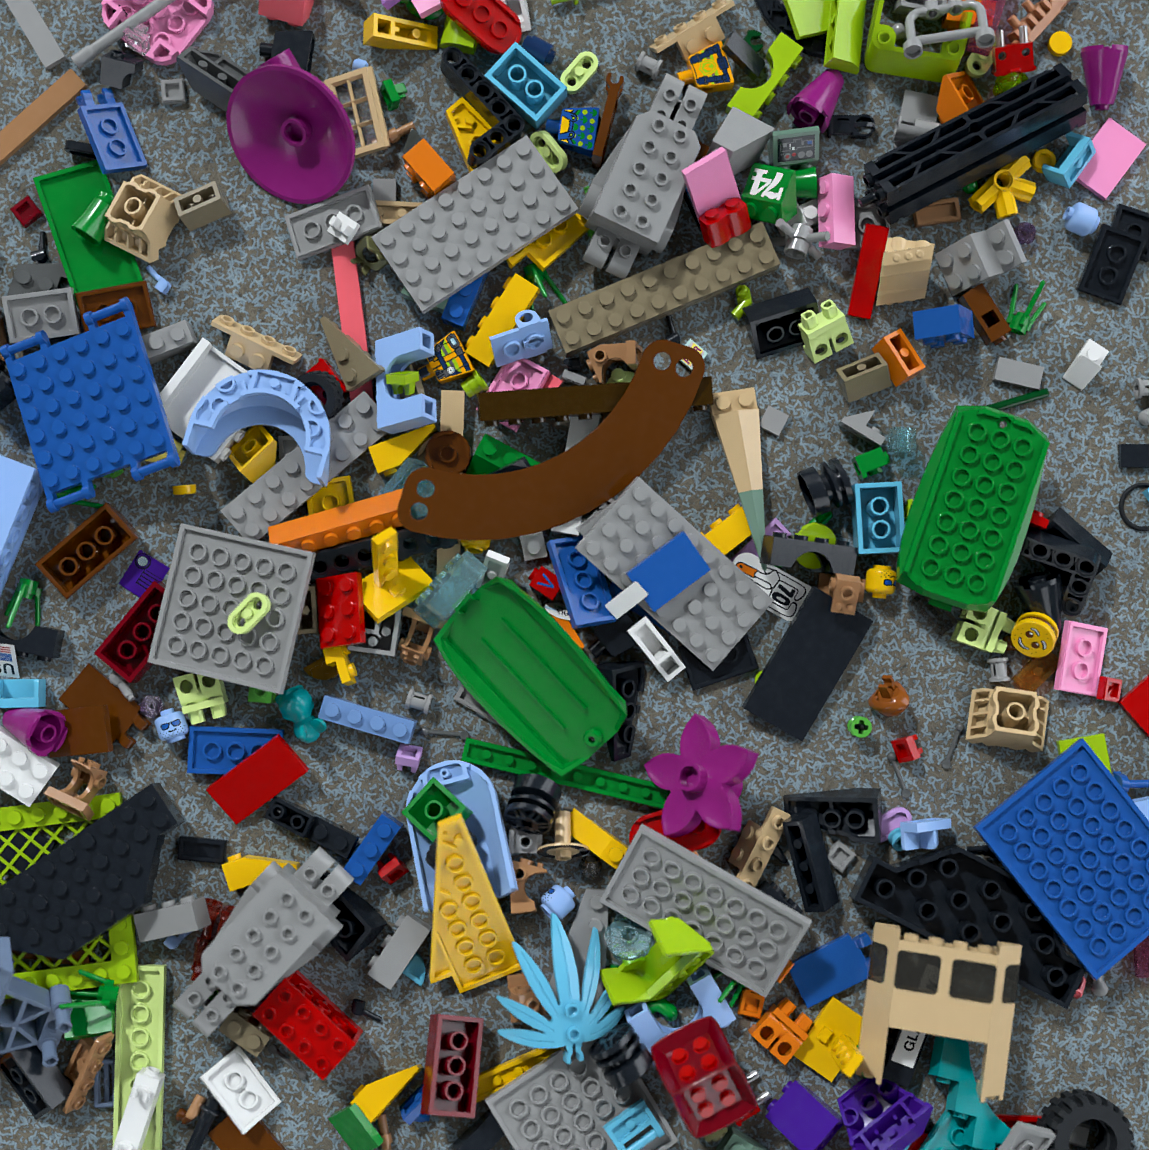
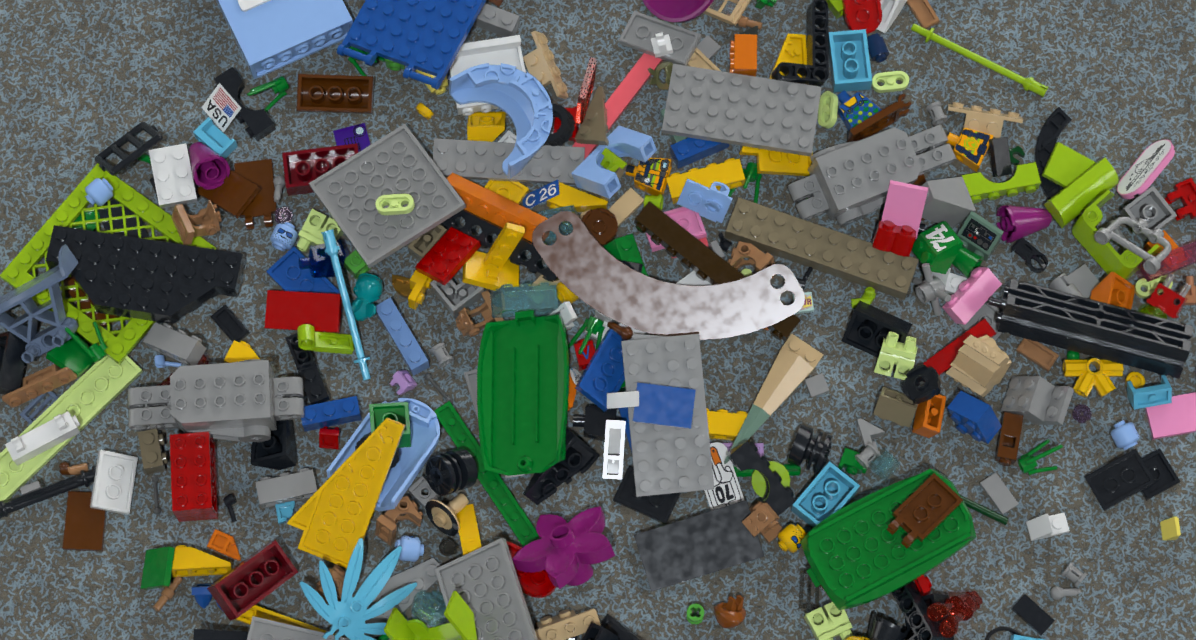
camera: 45 degrees right, 15 degrees down
(231, 706) = (332, 251): none -> medium azure bar
(231, 717) = (320, 262): none -> clear blue torso
(303, 790) = (323, 341): none -> lime plate
(315, 335) = (586, 90): none -> clear red tile
(367, 471) = (541, 194): none -> blue sticker
(392, 1048) = (224, 544): none -> orange tile
(531, 552) = (593, 326): none -> green plant
(567, 532) = (625, 332): none -> reddish brown piece
(867, 325) = (928, 390): none -> black plate
(883, 447) = (867, 455): none -> light grey bush
(991, 456) = (924, 510): none -> reddish brown tile
(1084, 509) = (960, 607): none -> clear red piece

